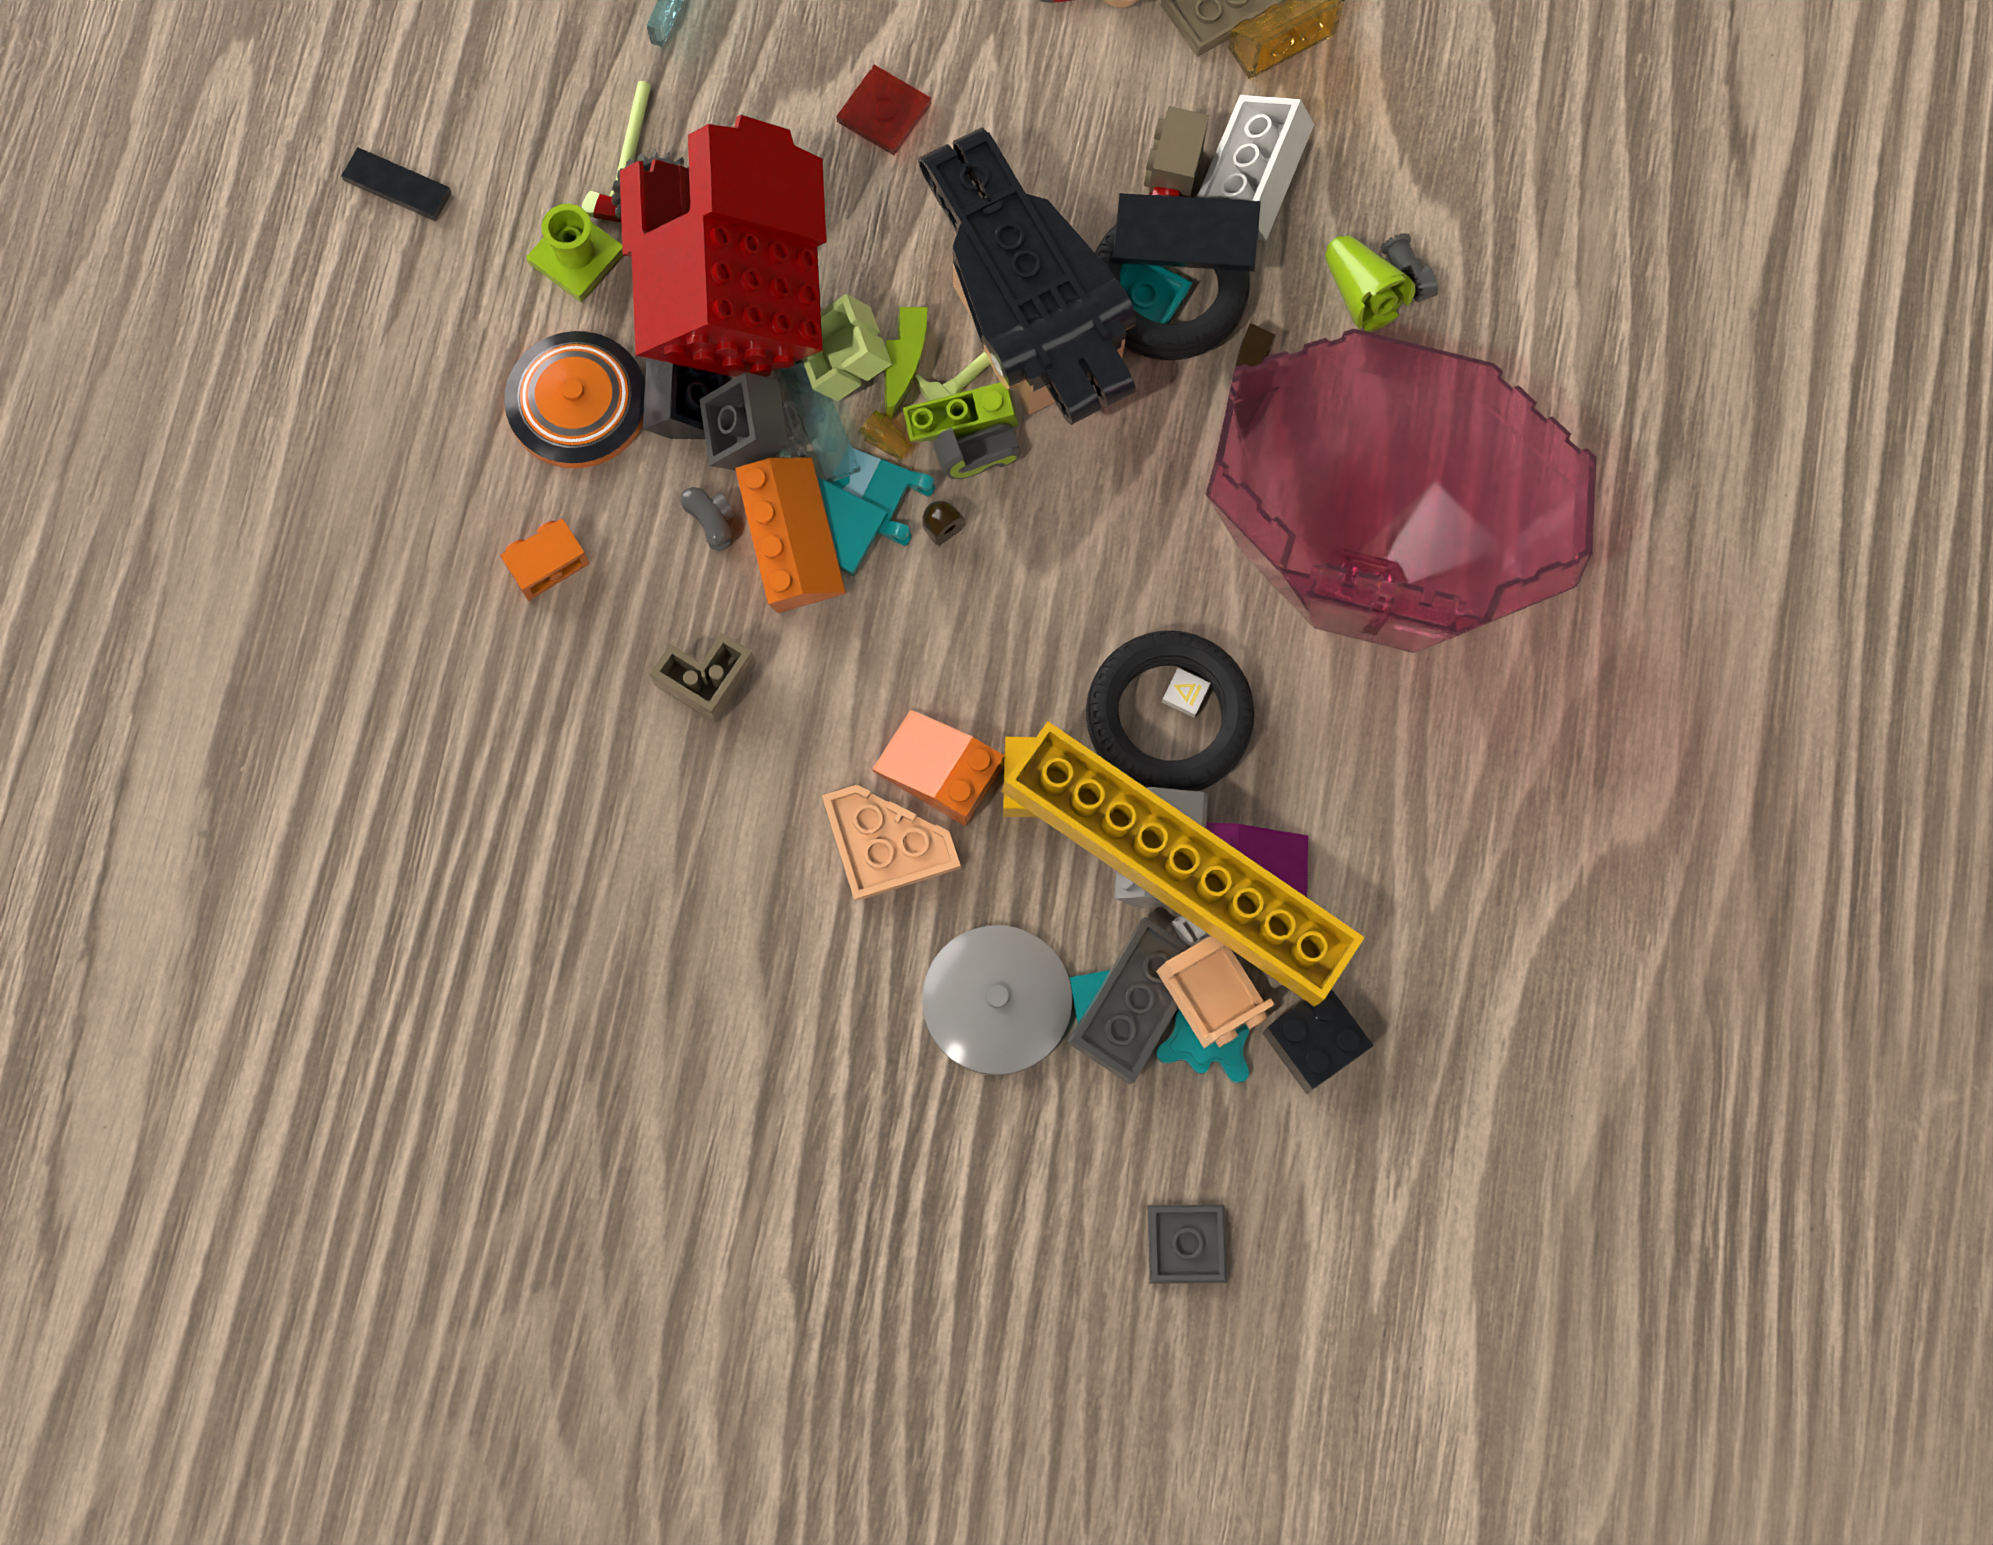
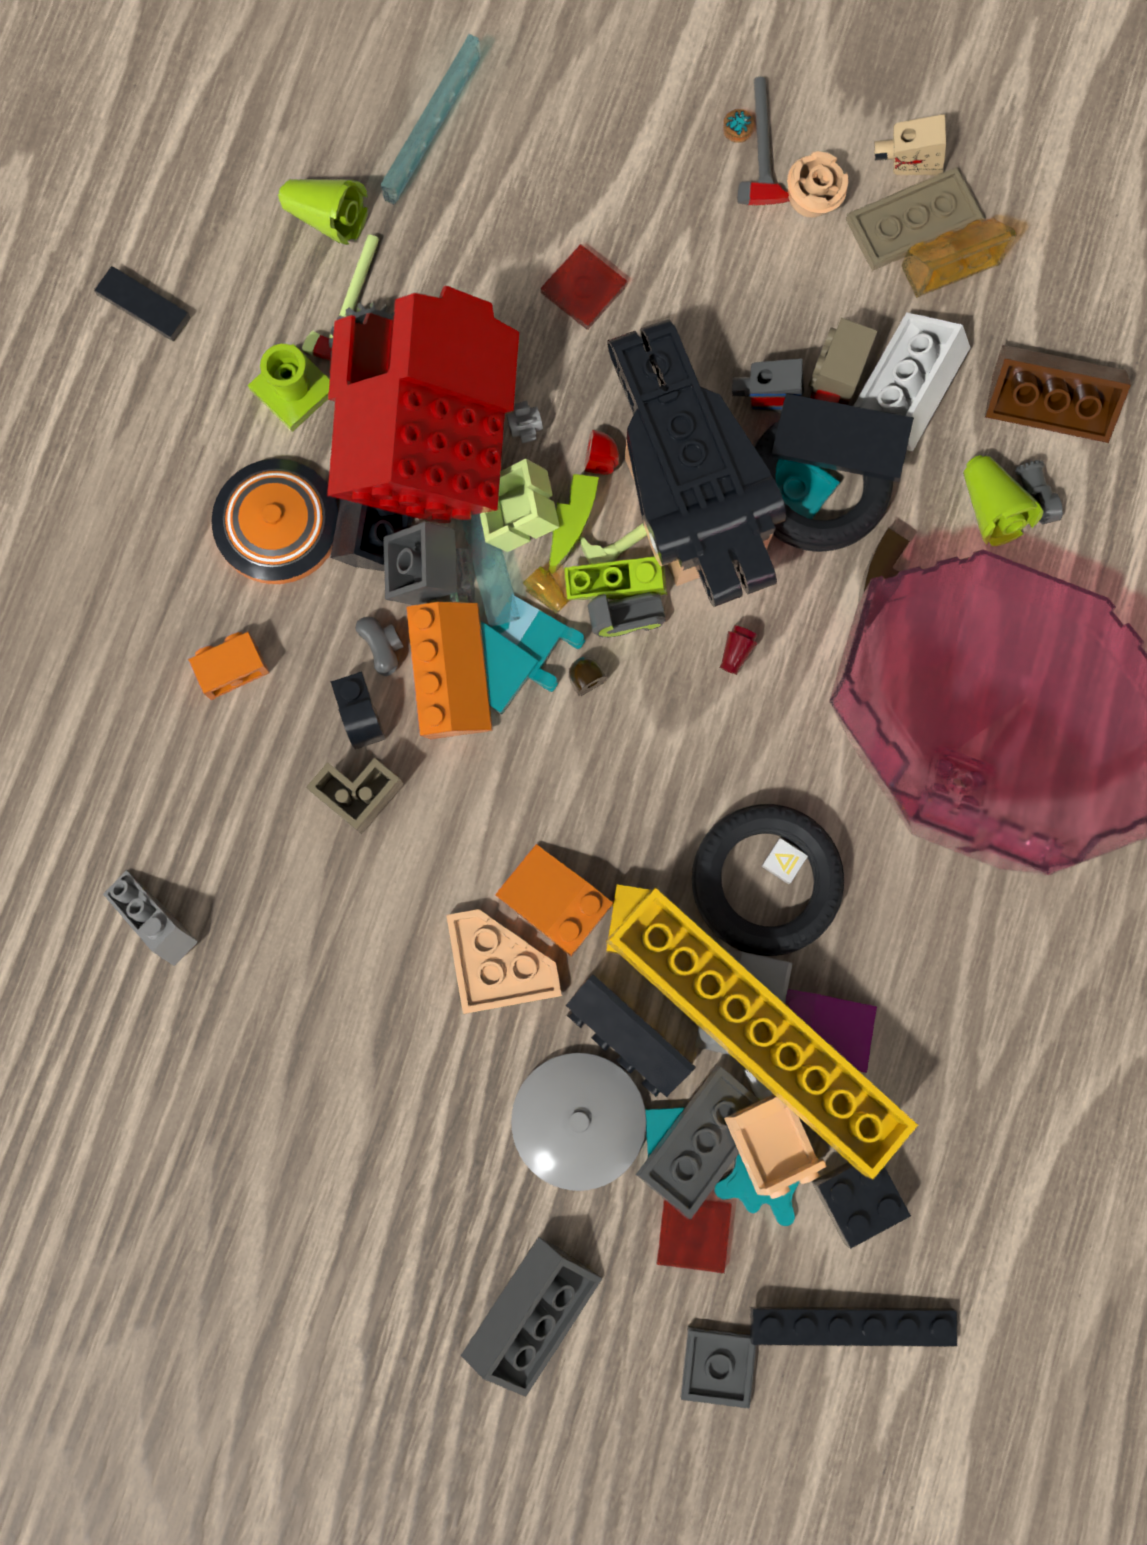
camera: 10 degrees right, 5 degrees up
(492, 842) = (150, 919): none -> light grey slope
(589, 55) = (327, 205): none -> lime cone
(695, 589) = (357, 710): none -> black brick
(838, 259) = (524, 421): none -> light grey gear
(926, 284) = (601, 454): none -> red piece
(973, 1215) = (531, 1318): none -> dark grey slope
(1040, 896) = (629, 1036): none -> black slope
(1101, 185) = (771, 383): none -> dark grey torso
(1104, 472) = (738, 647): none -> dark red cone
(1141, 1109) = (697, 1241): none -> clear red tile
(1328, 1178) = (853, 1326): none -> black plate
(1414, 162) = (1056, 393): none -> reddish brown slope

